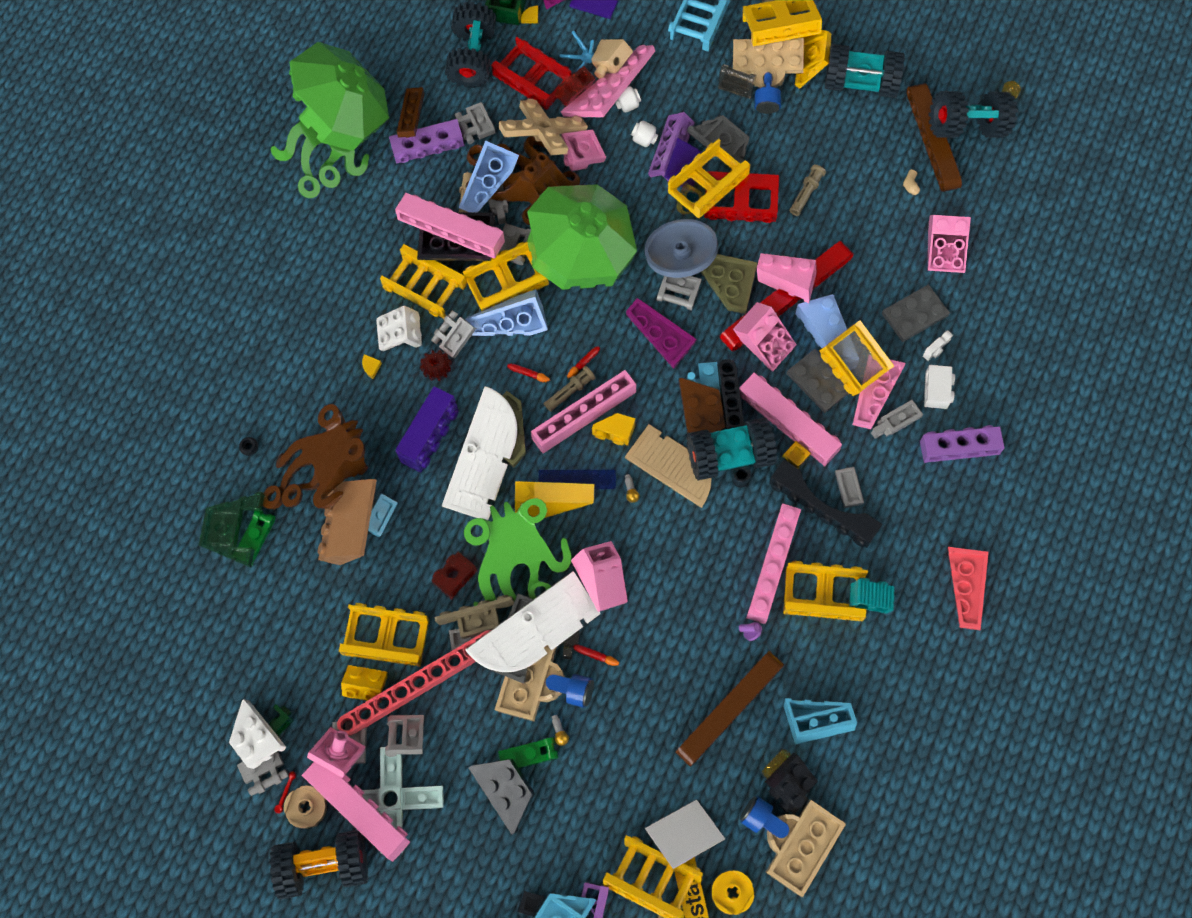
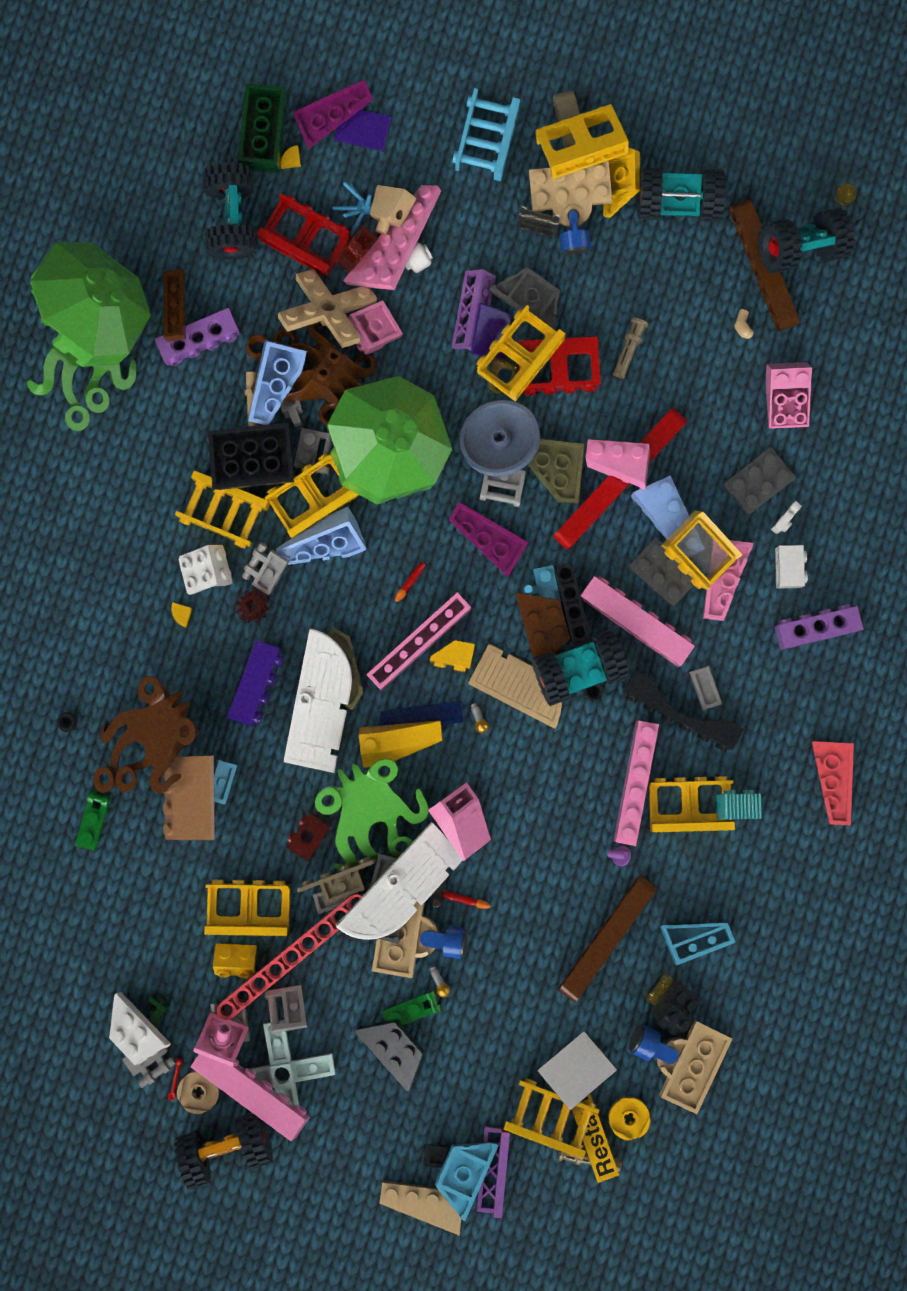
camera: 10 degrees left, 15 degrees up
(222, 528) = (58, 819): clear green wing -> none
(450, 225) = (243, 447): bright pink brick -> none
(480, 120) = (253, 302): light grey plate -> none
(528, 372) = (353, 601): red piece -> none
(576, 384) = (408, 609): dark tan pin -> none
(644, 133) = (441, 299): white head -> none
(765, 335) = (601, 532): bright pink slope -> none
(796, 454) = (647, 659): yellow tile -> none
(897, 419) = (750, 607): light grey hinge -> none

